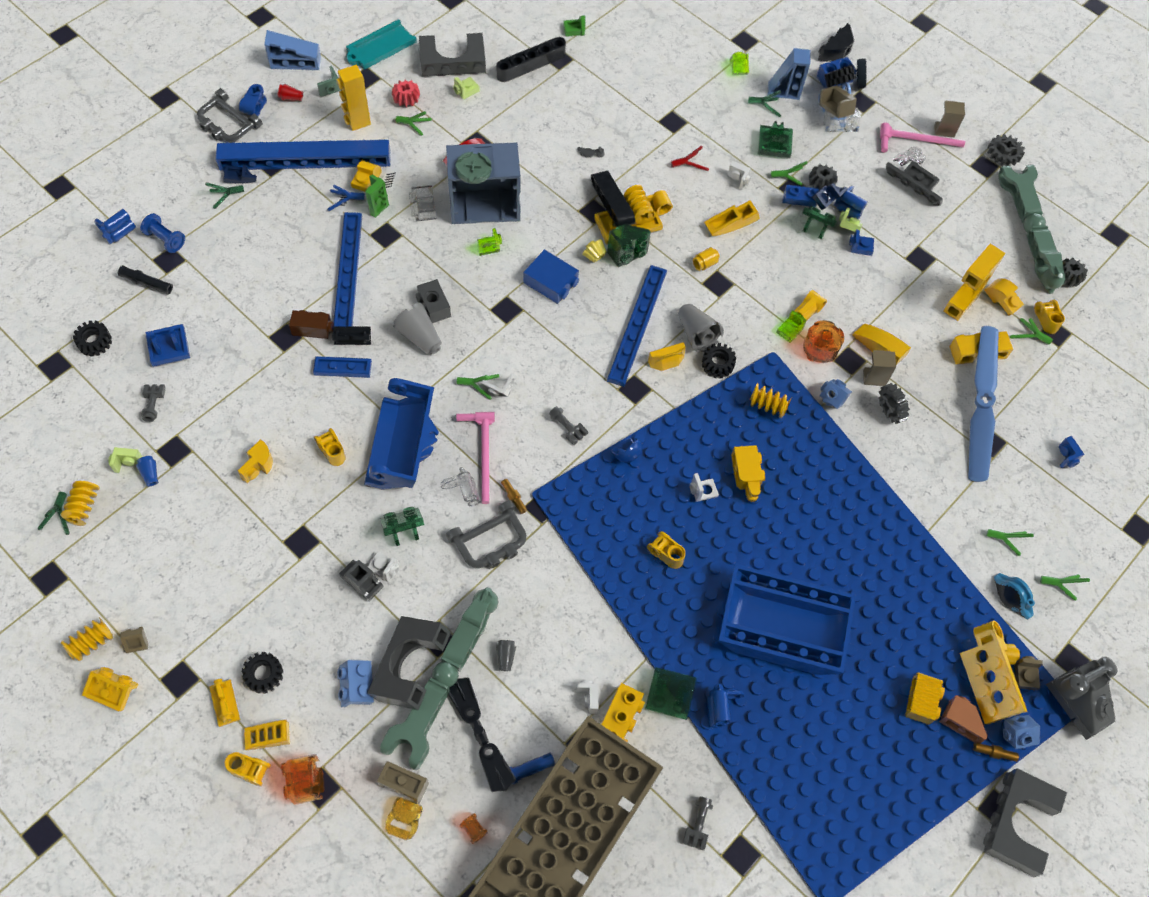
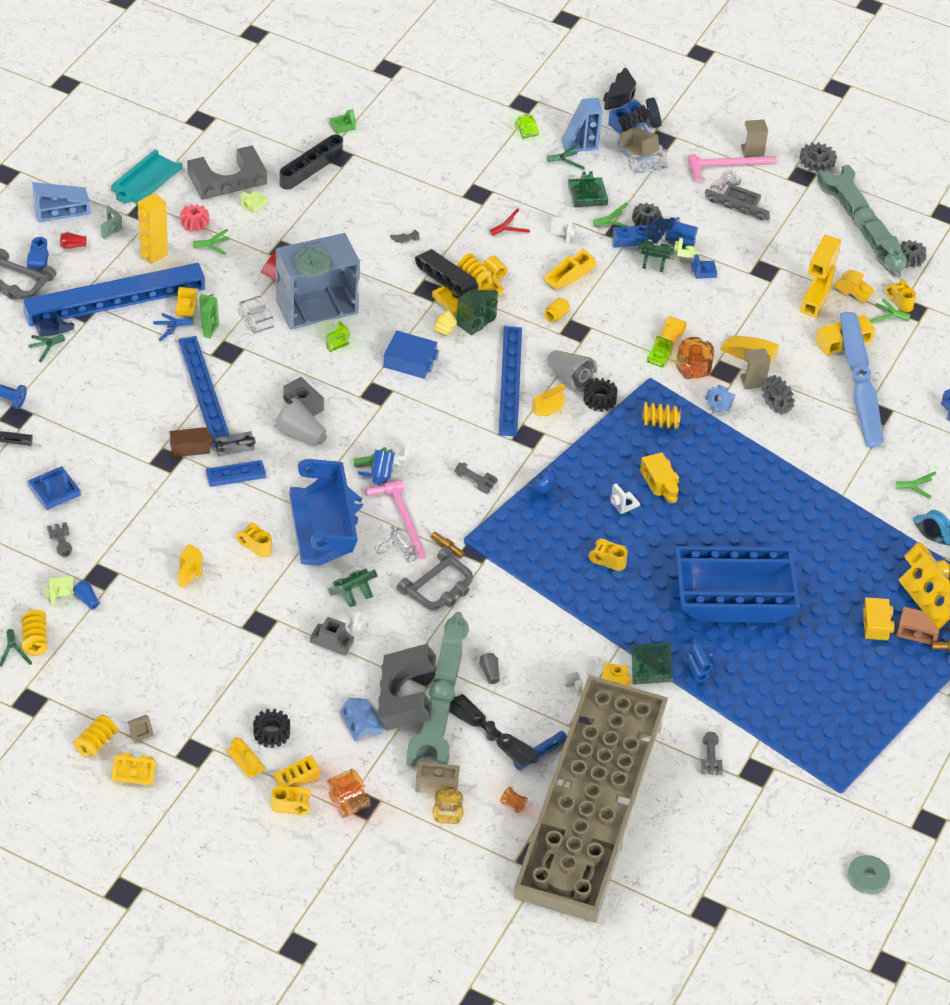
camera: 15 degrees left, 15 degrees down
(476, 396) = (381, 467): none -> blue piece

